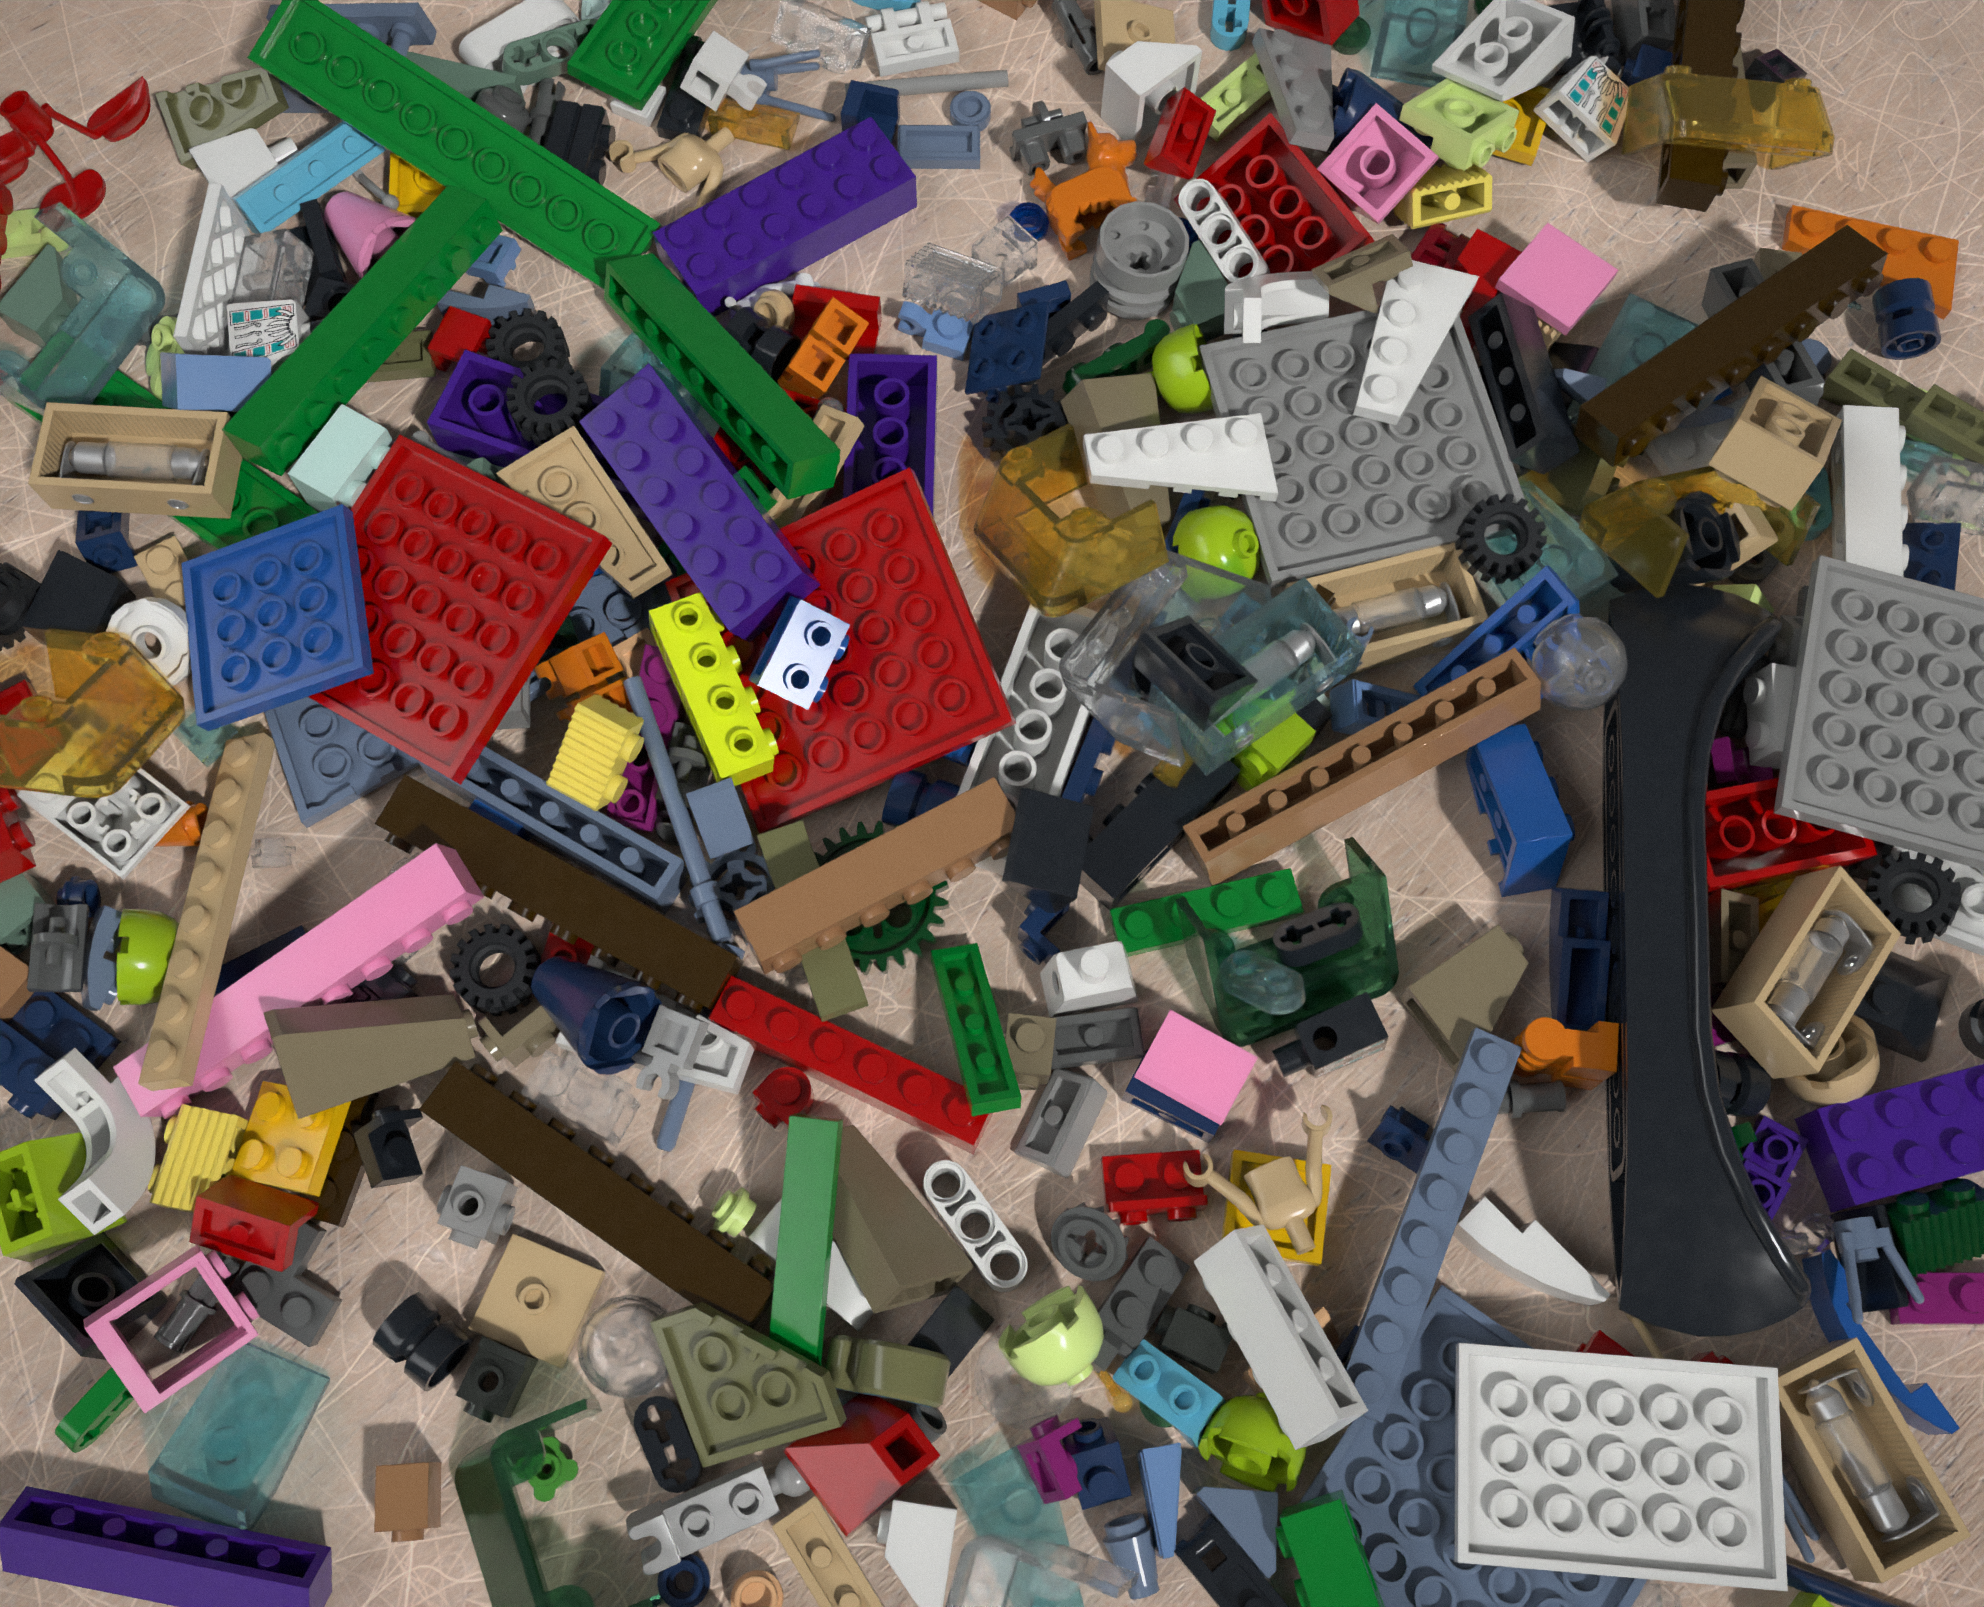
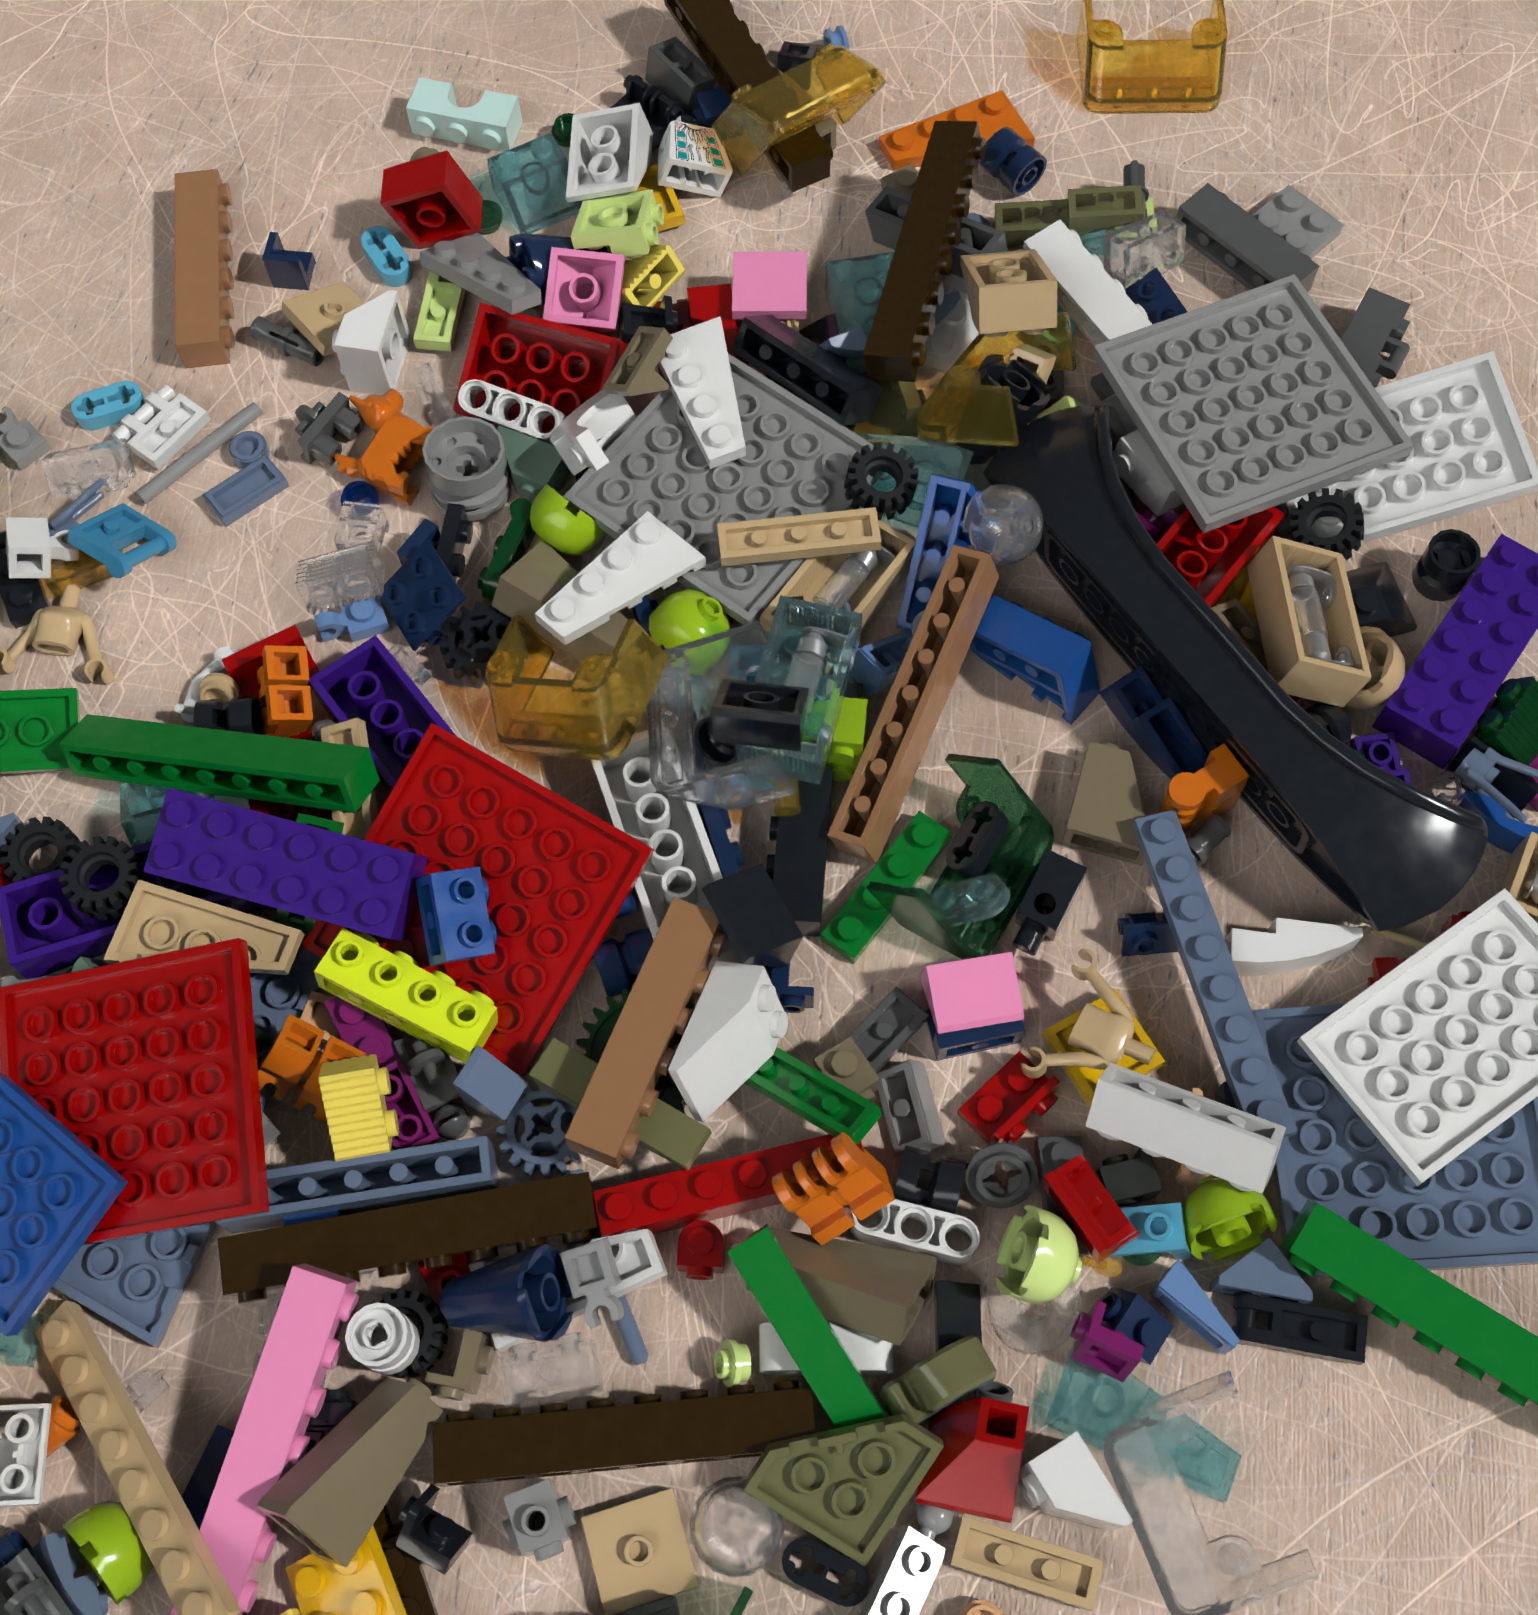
camera: 35 degrees left, 5 degrees down
(467, 960) = (382, 1338): none -> white wheel
(706, 892) = (523, 1146): sand blue bar -> none
(788, 217) = (173, 615): dark purple brick -> none
(793, 105) = (116, 529): none -> dark azure plate
(873, 101) = (175, 500): dark blue panel -> none
(928, 1135) = (847, 1185): none -> orange legs
(945, 934) = (727, 1036): none -> white slope
(951, 402) = (410, 664): none -> clear tile
(1031, 1211) = (945, 1182): none -> black wheel
(1088, 980) = (851, 991): white torso -> none
(1132, 1547) = (1203, 1358): sand blue cone -> none
(1137, 1334) = (1089, 1208): none -> red hinge
(1180, 135) = (425, 361): red slope -> none
(1379, 536) = (799, 536): none -> tan plate
(1416, 234) = (635, 315): none -> black bracket
(1829, 82) = (836, 37): none -> medium blue bush

